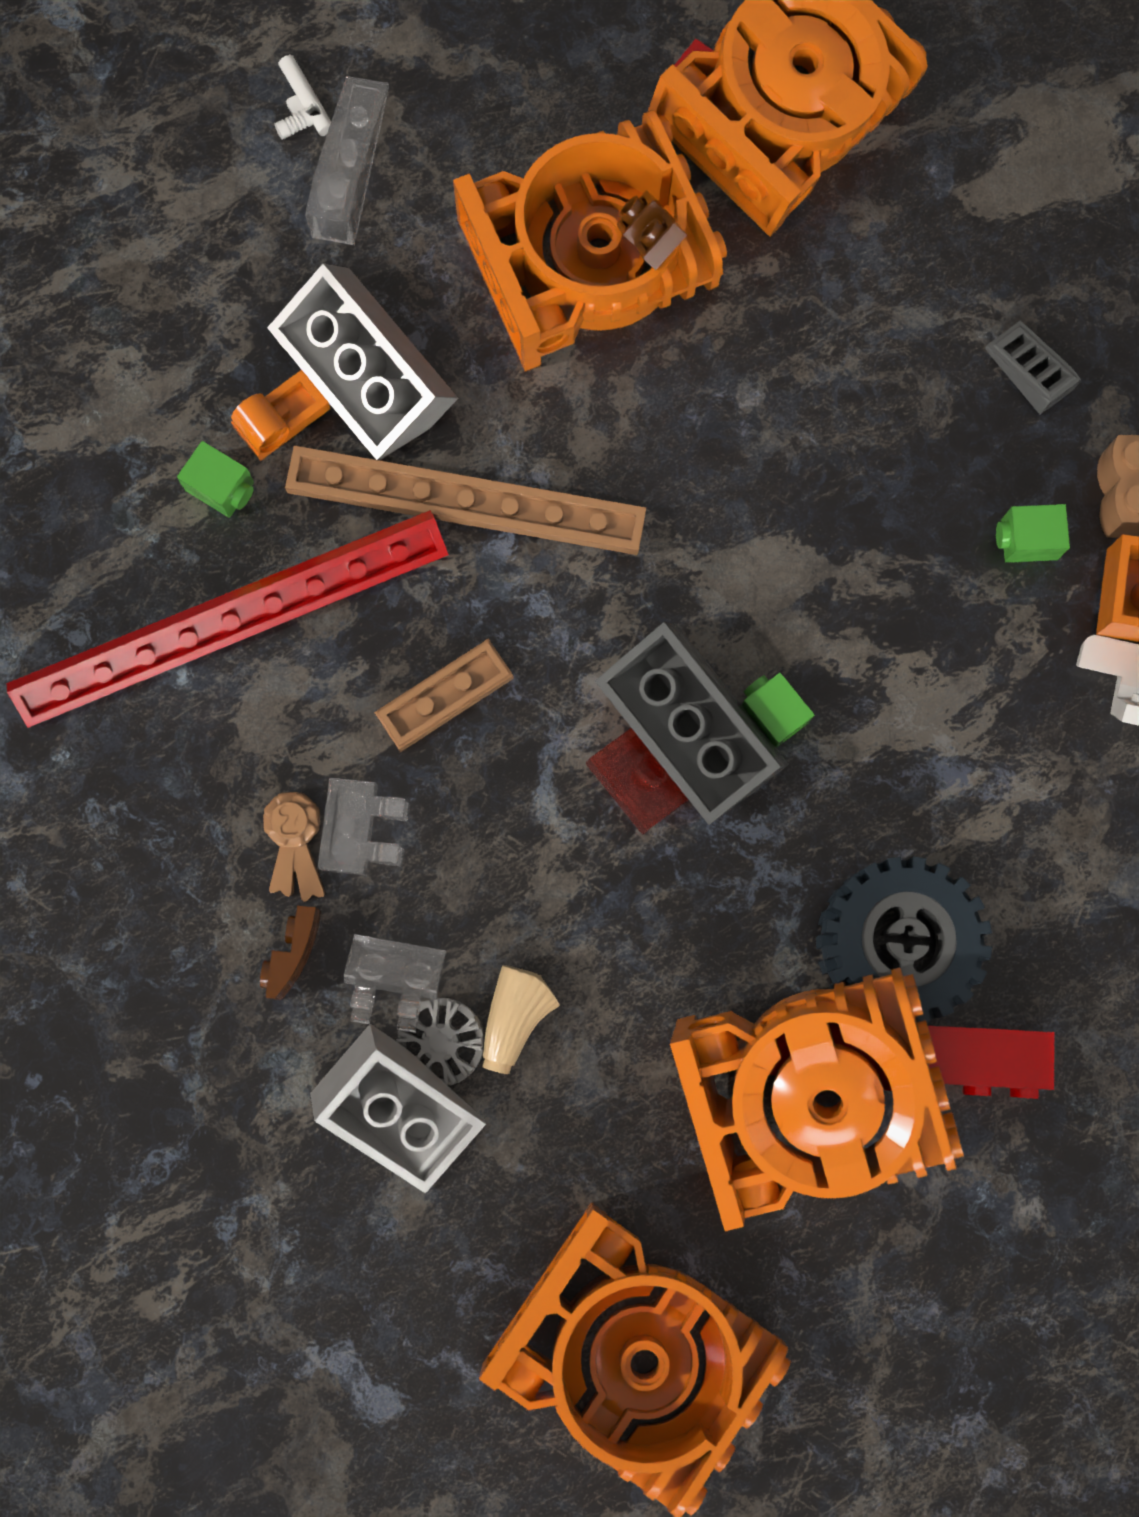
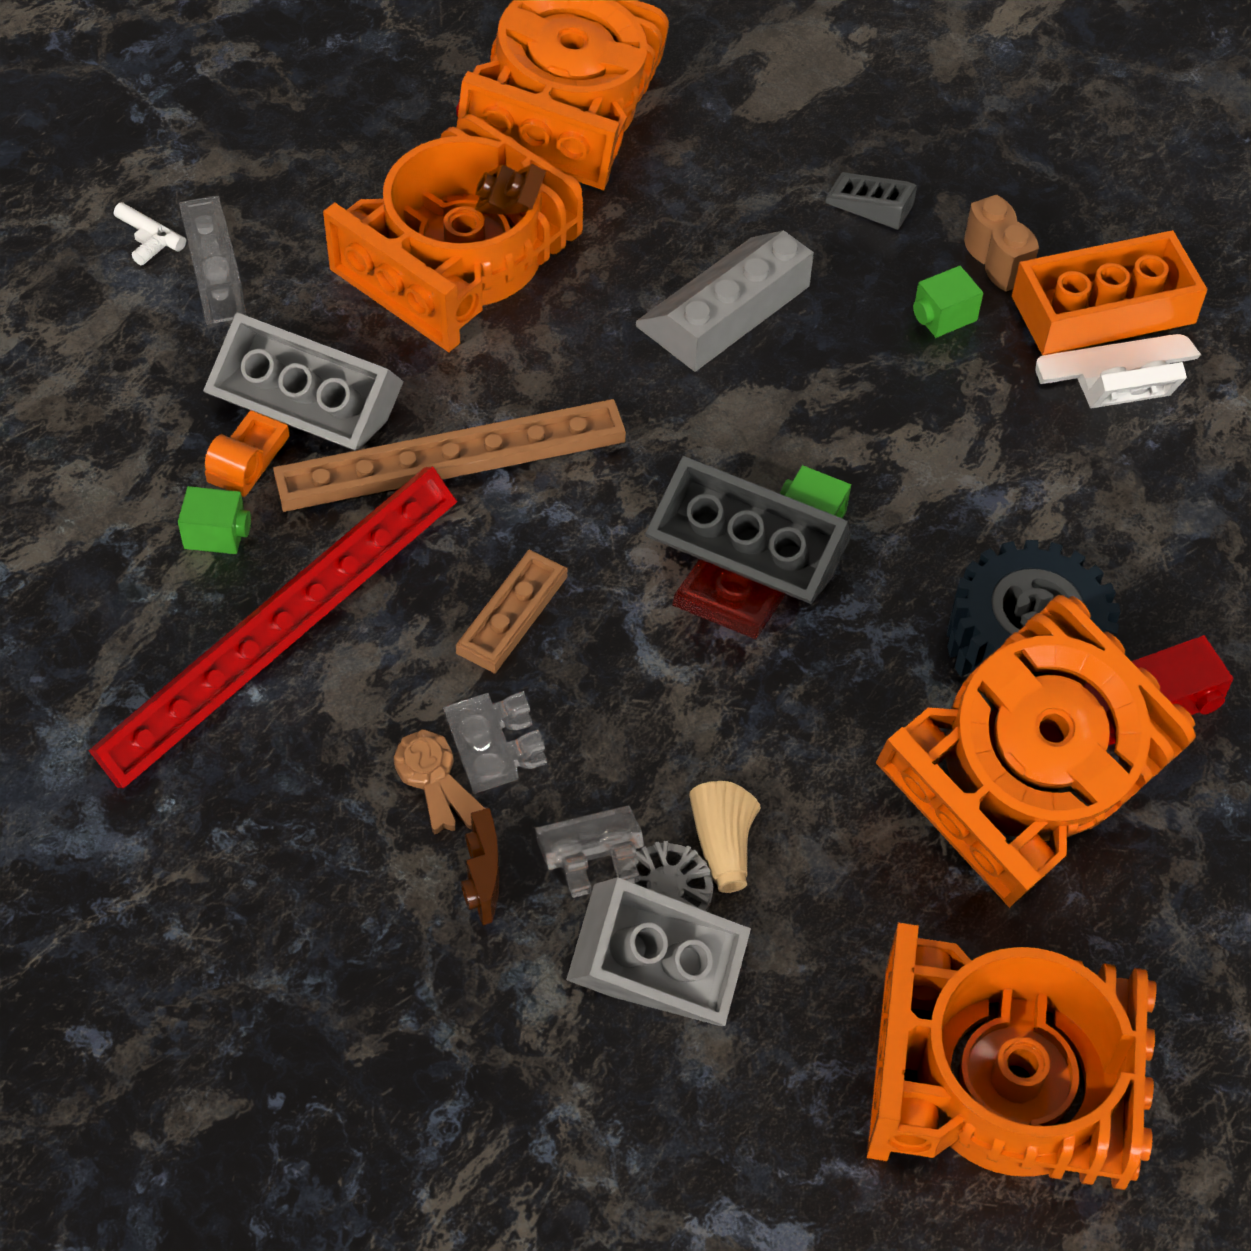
camera: 25 degrees left, 25 degrees down
(821, 429) = (730, 298): none -> light grey slope

